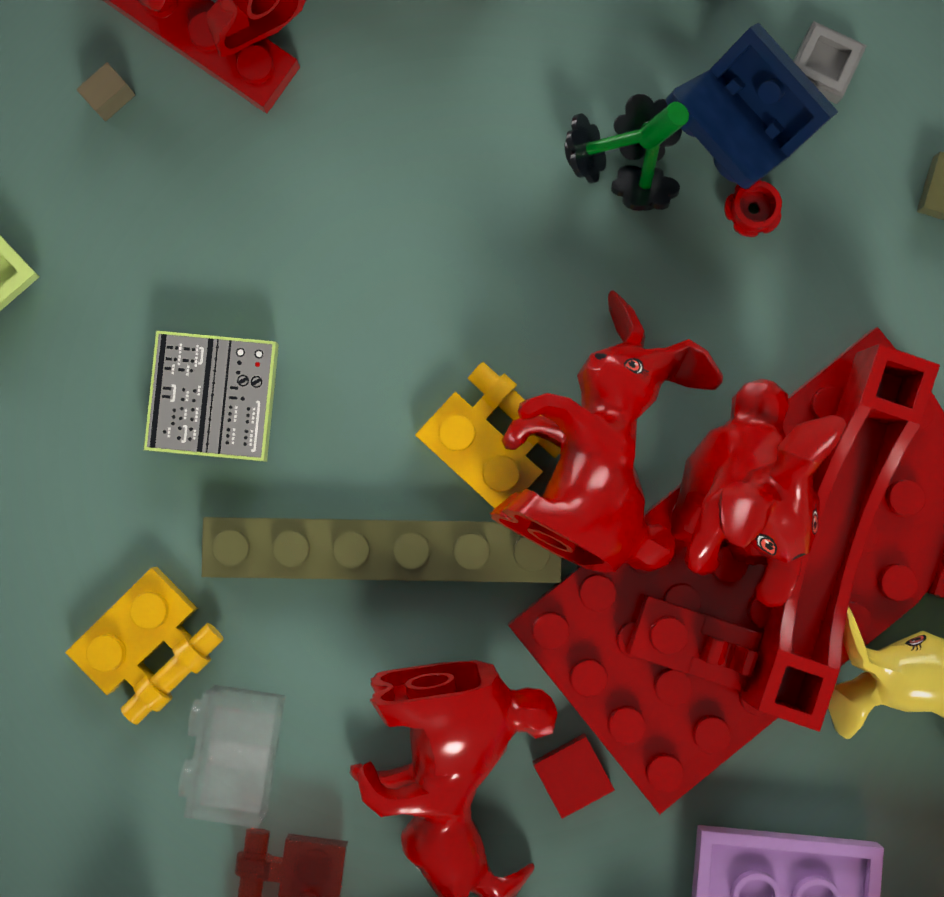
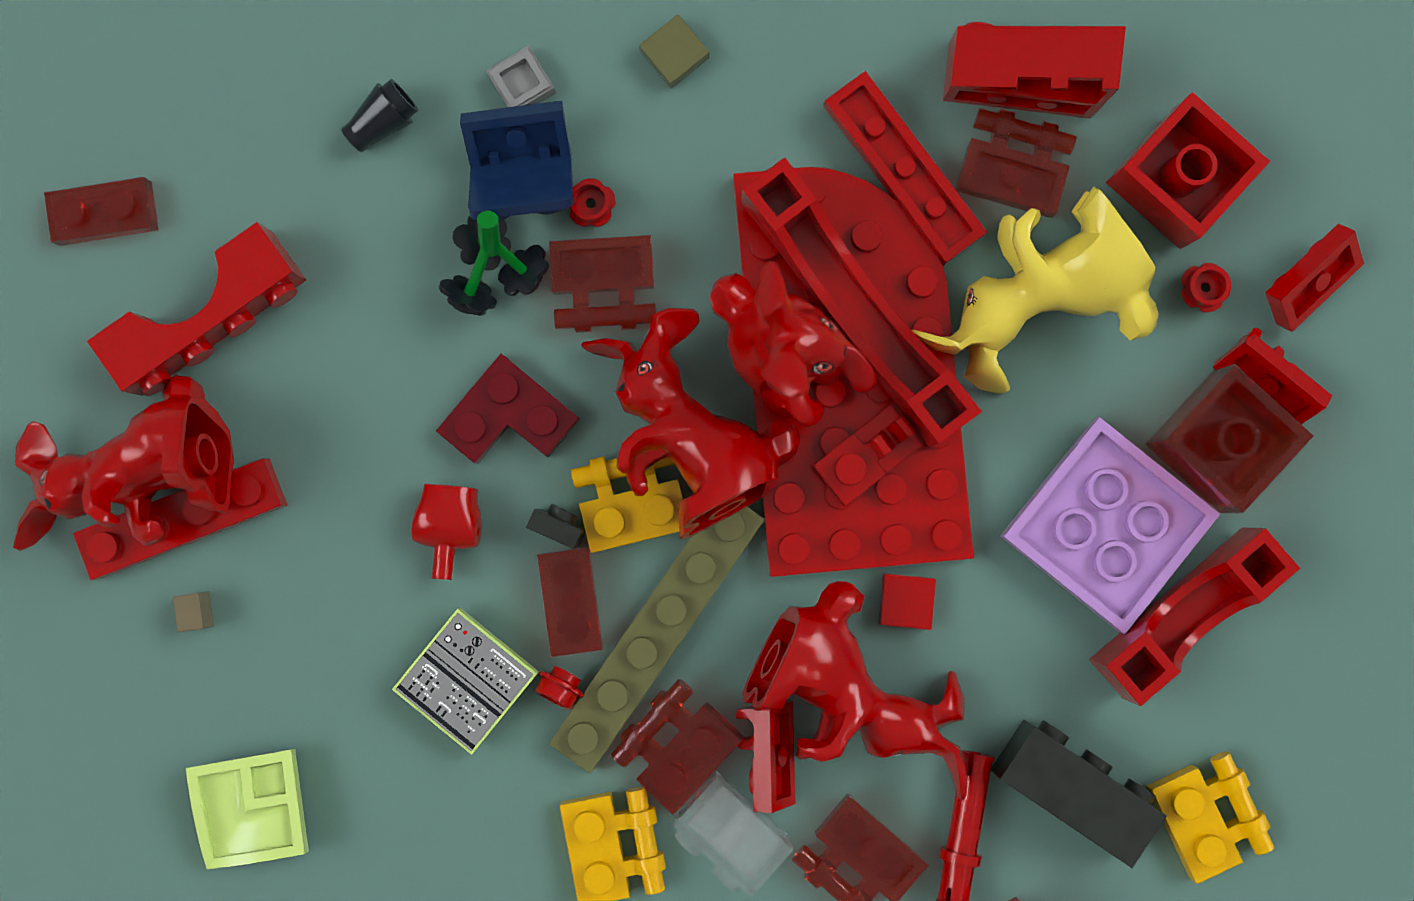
camera: 50 degrees left, 0 degrees up
(264, 491) = (559, 687): none -> red plate
(282, 663) = (689, 757): none -> clear red plate
(326, 751) = (773, 761): none -> red plate
(353, 275) = (447, 521): none -> red piece
(354, 446) = (570, 602): none -> clear red plate
(420, 384) = (557, 525): none -> pearl dark grey plate
(505, 250) = (505, 399): none -> dark red plate
(700, 261) = (602, 266): none -> clear red plate

